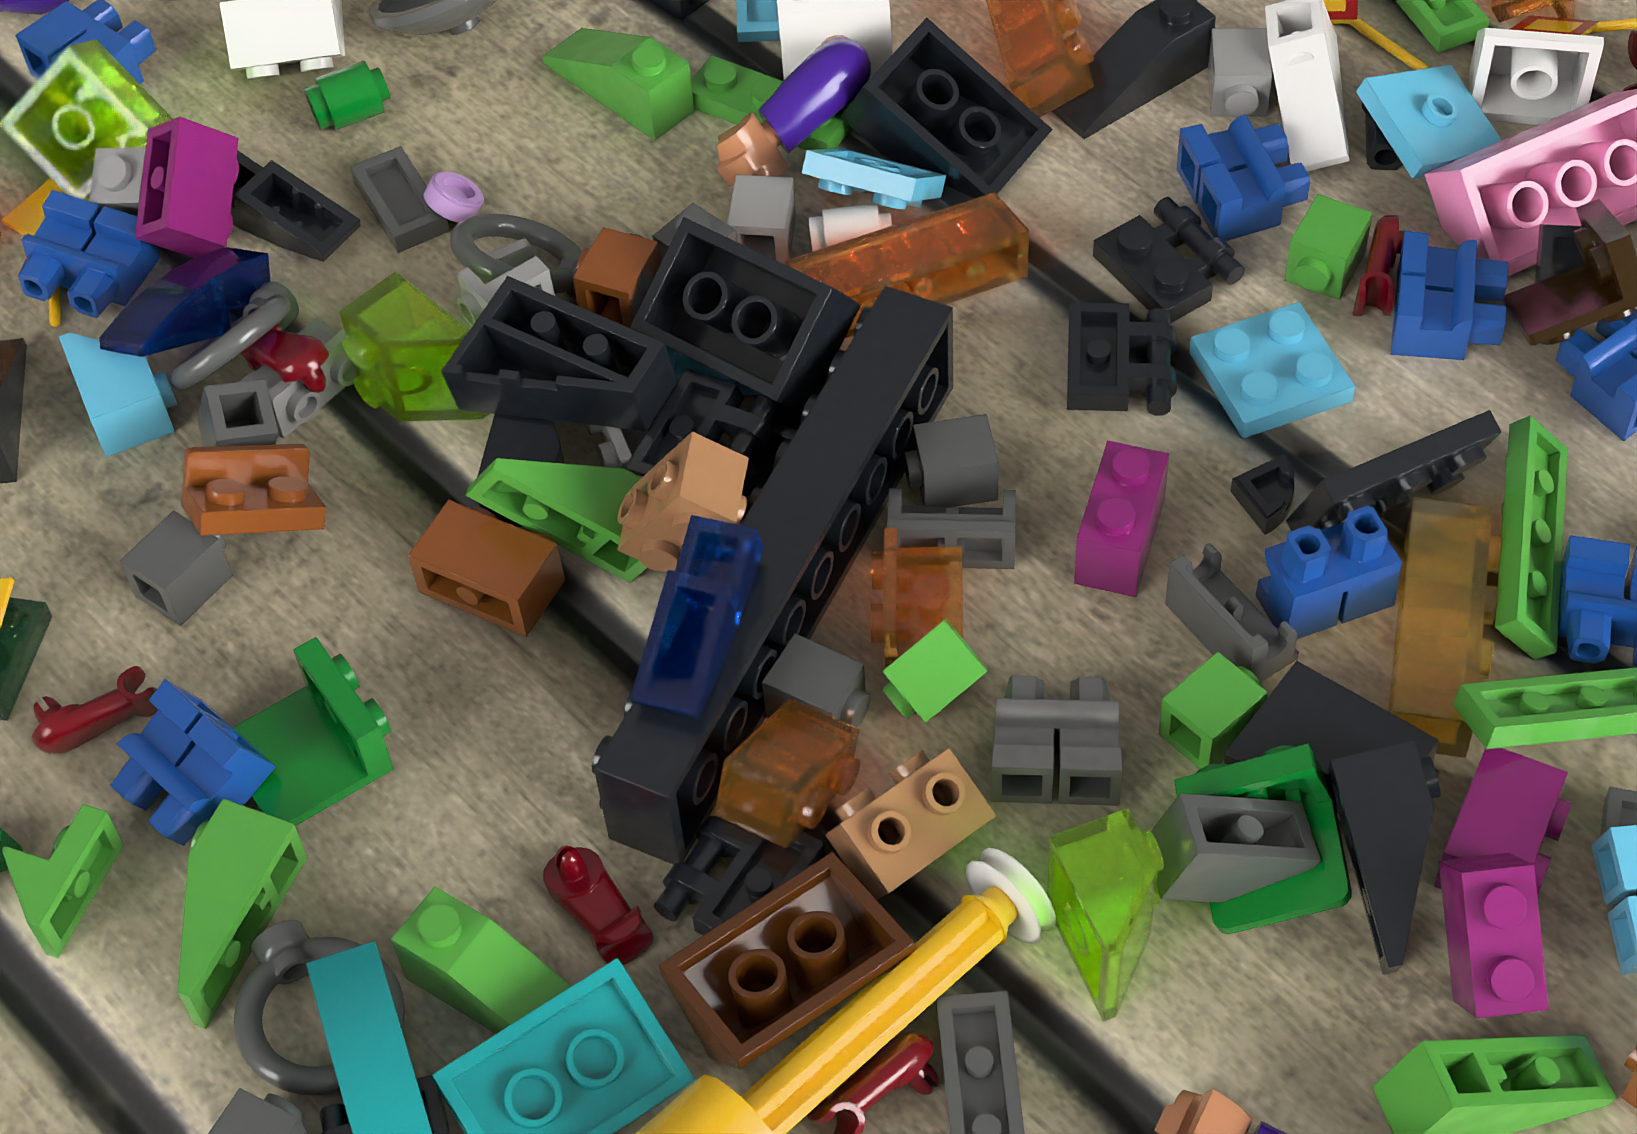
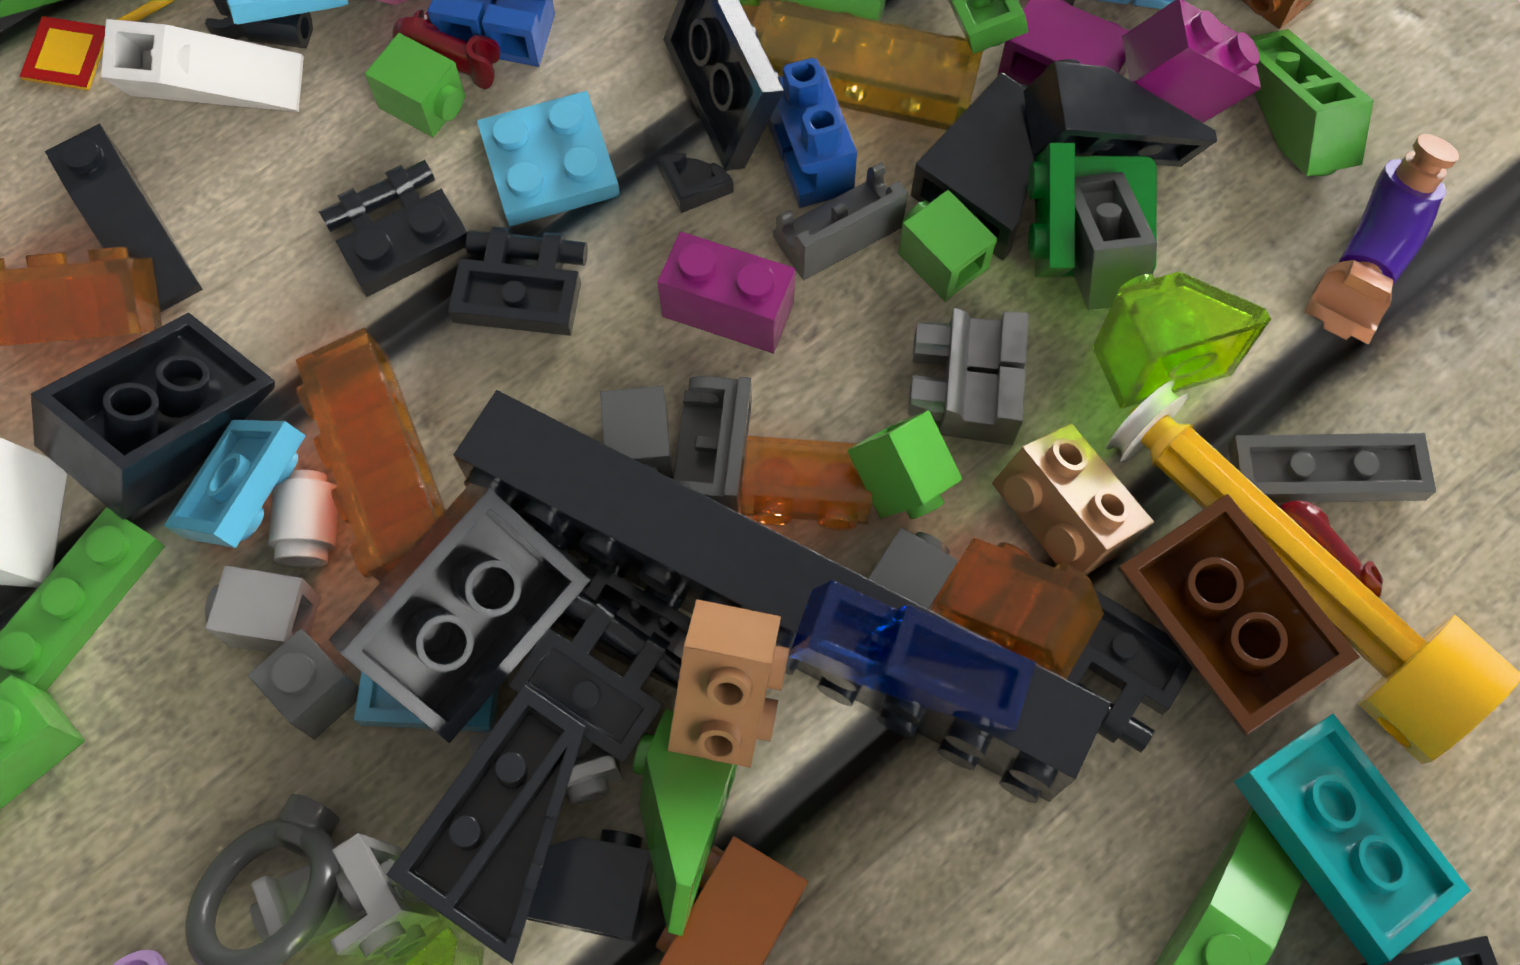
camera: 90 degrees left, 15 degrees up
(590, 897) = (1129, 815): dark red piece -> none
(616, 274) = (369, 764): dark orange brick -> none
(795, 110) = (104, 540): dark purple piece -> none
(1236, 177) = (304, 148): blue hips -> none
(1239, 72) = (163, 128): light grey brick -> none

